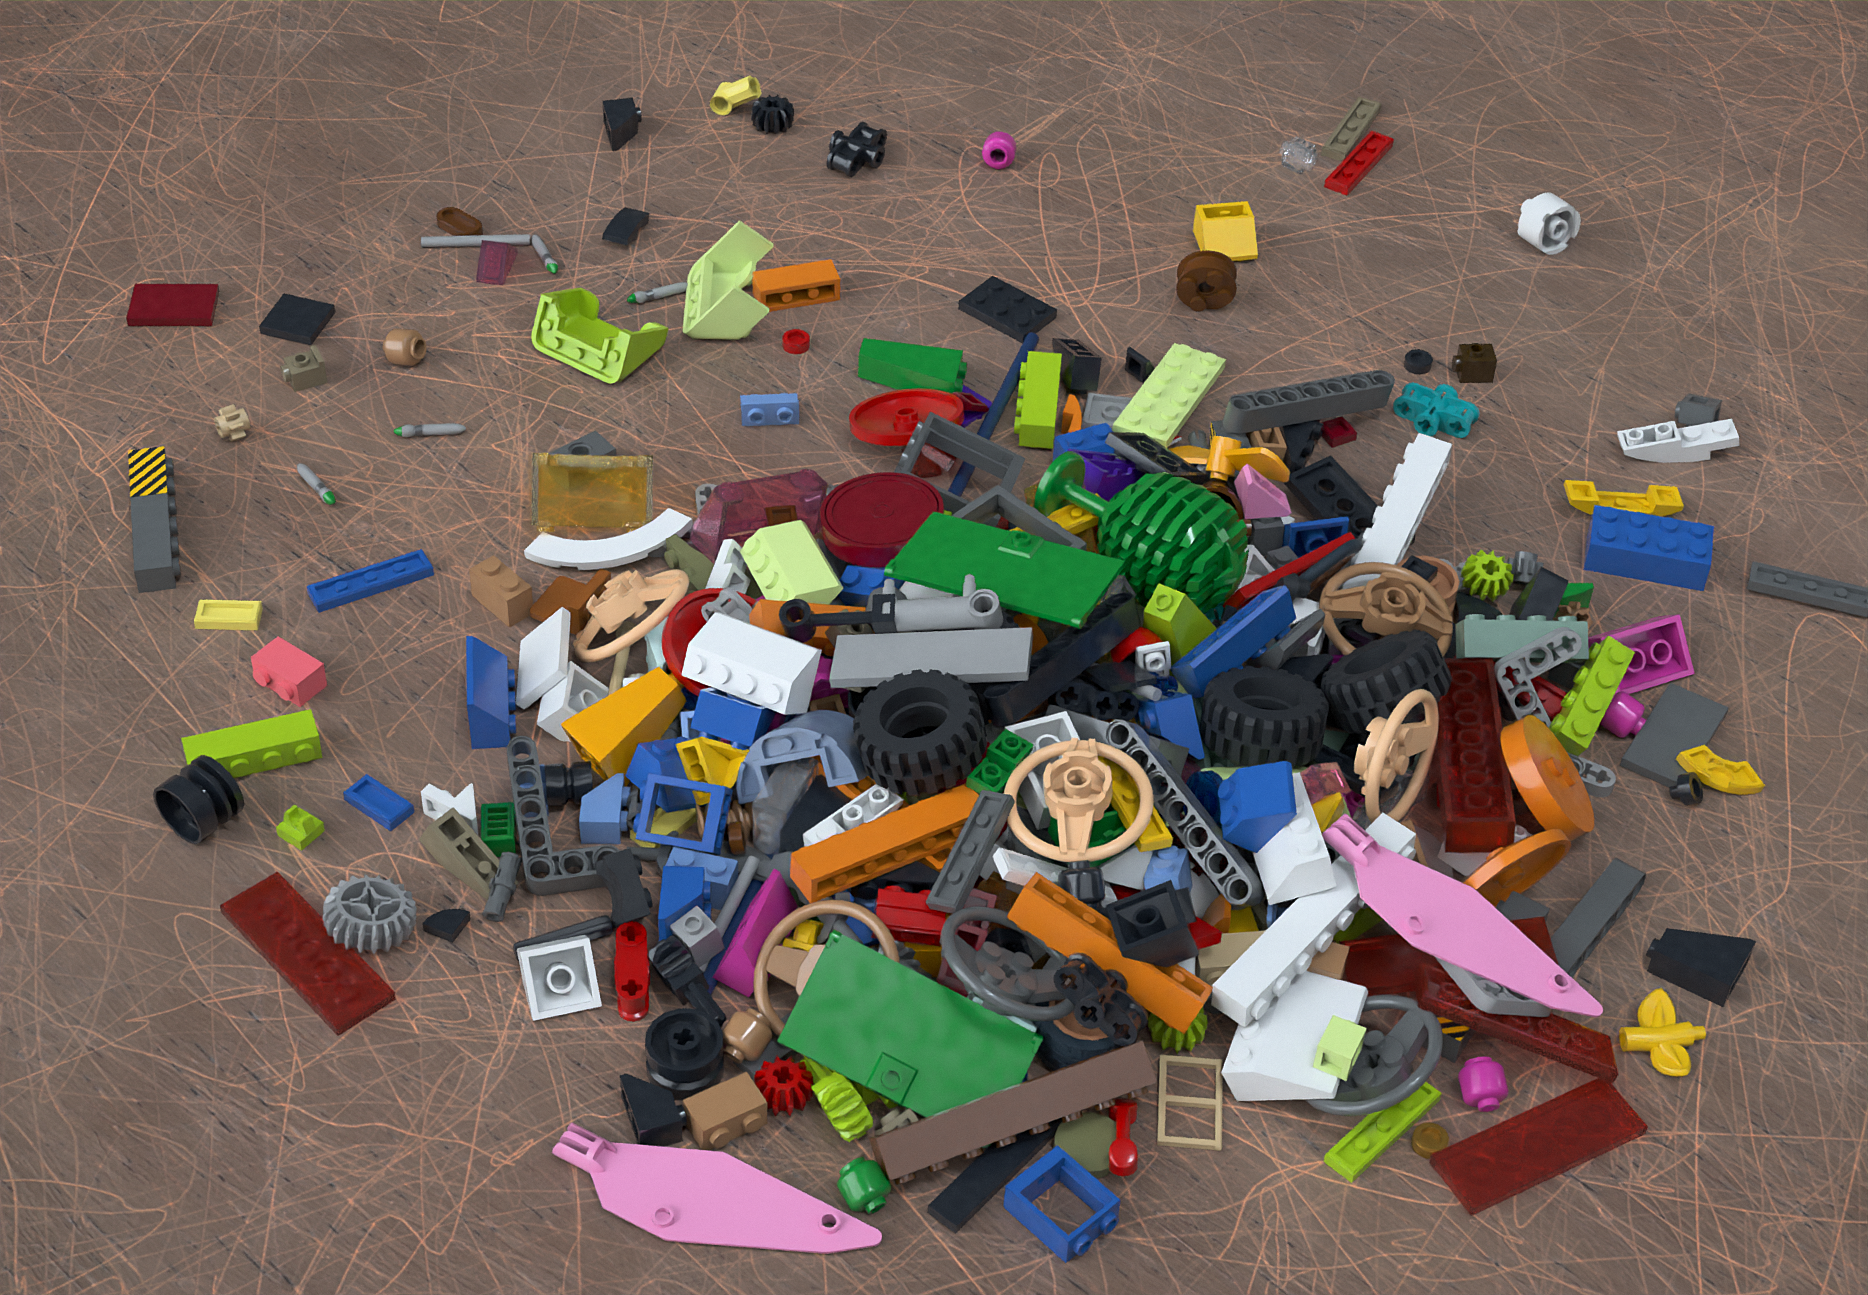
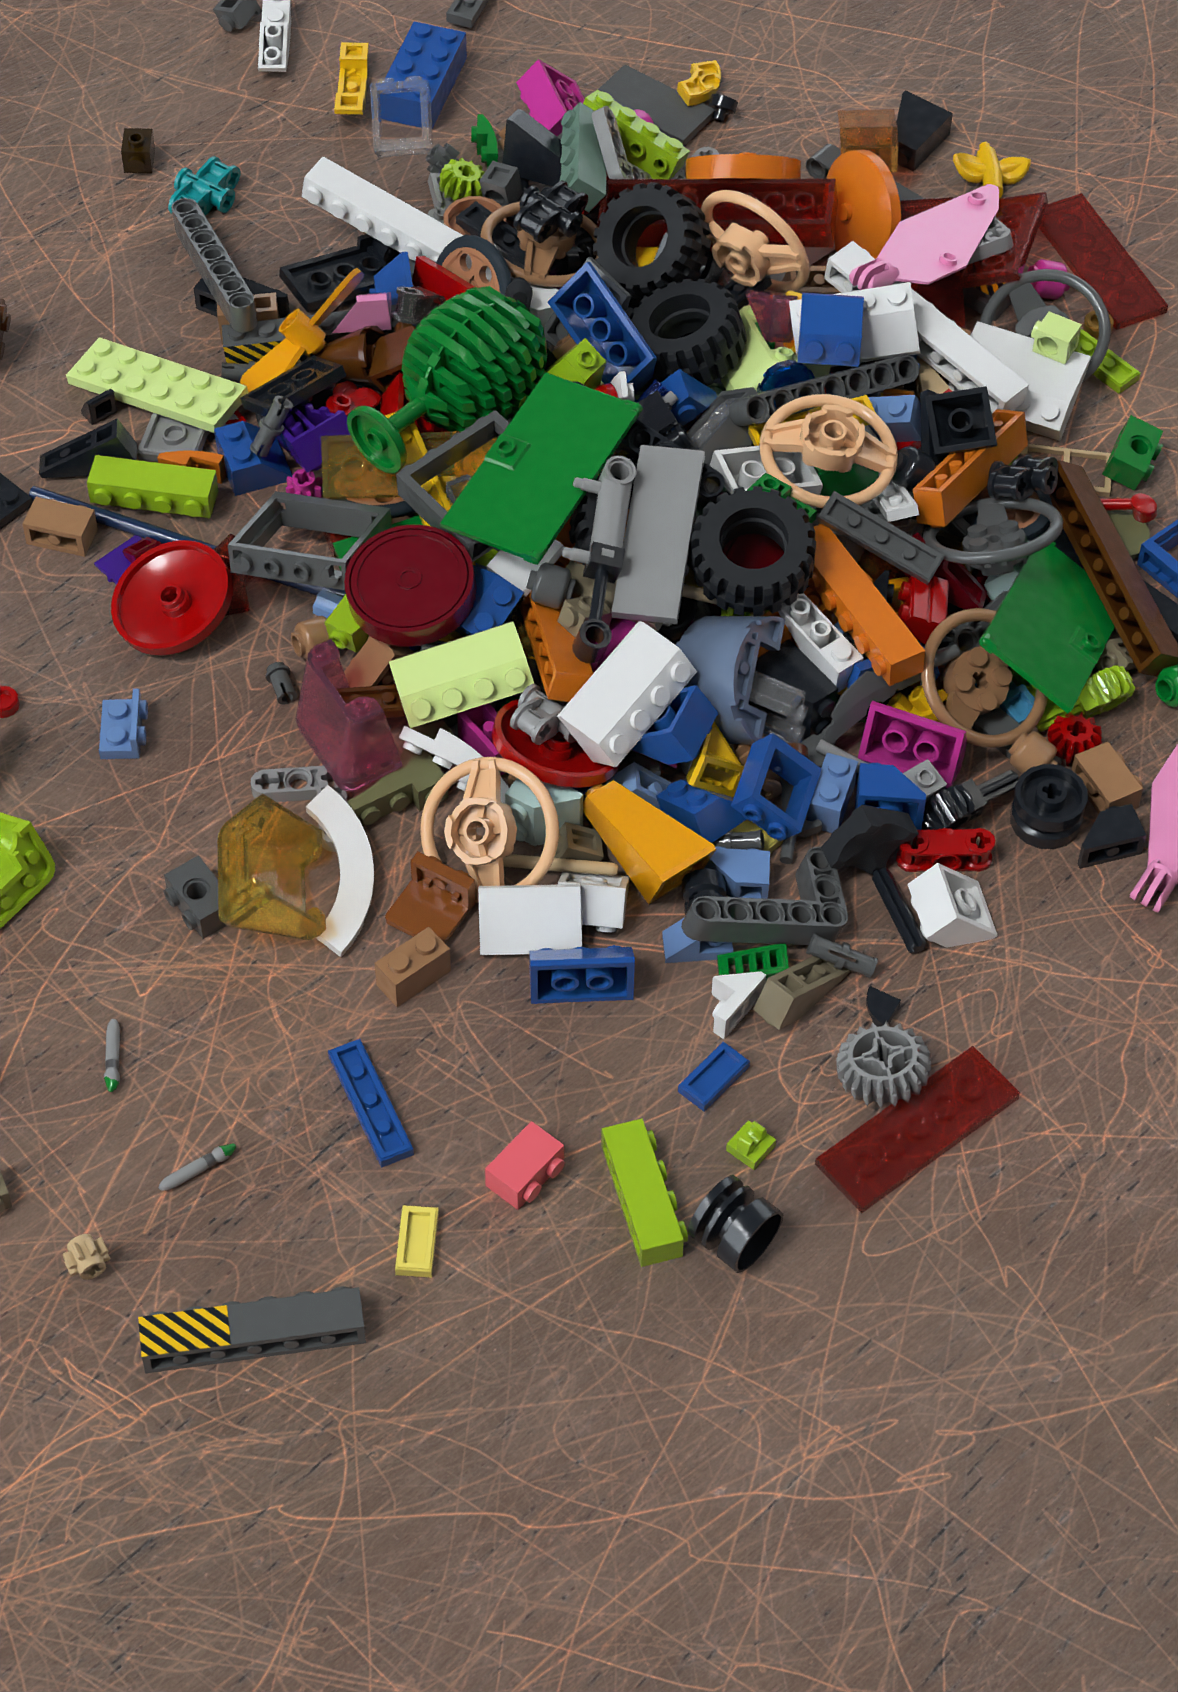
camera: 85 degrees left, 10 degrees up
(911, 366) = (80, 592): green slope -> none
(990, 352) = (60, 526): none -> medium nougat brick
(1096, 438) = (271, 426): none -> dark grey pin
(1200, 1138) = (1133, 452): none -> green brick
(1275, 529) = (415, 304): none -> clear smoke piece
(1395, 590) = (544, 214): none -> black axle
(1418, 361) = (119, 196): black tile -> none
(1477, 593) = (501, 183): none -> dark grey brick
(1571, 536) = (401, 146): none -> clear window
(1649, 895) = (870, 131): none -> clear orange slope

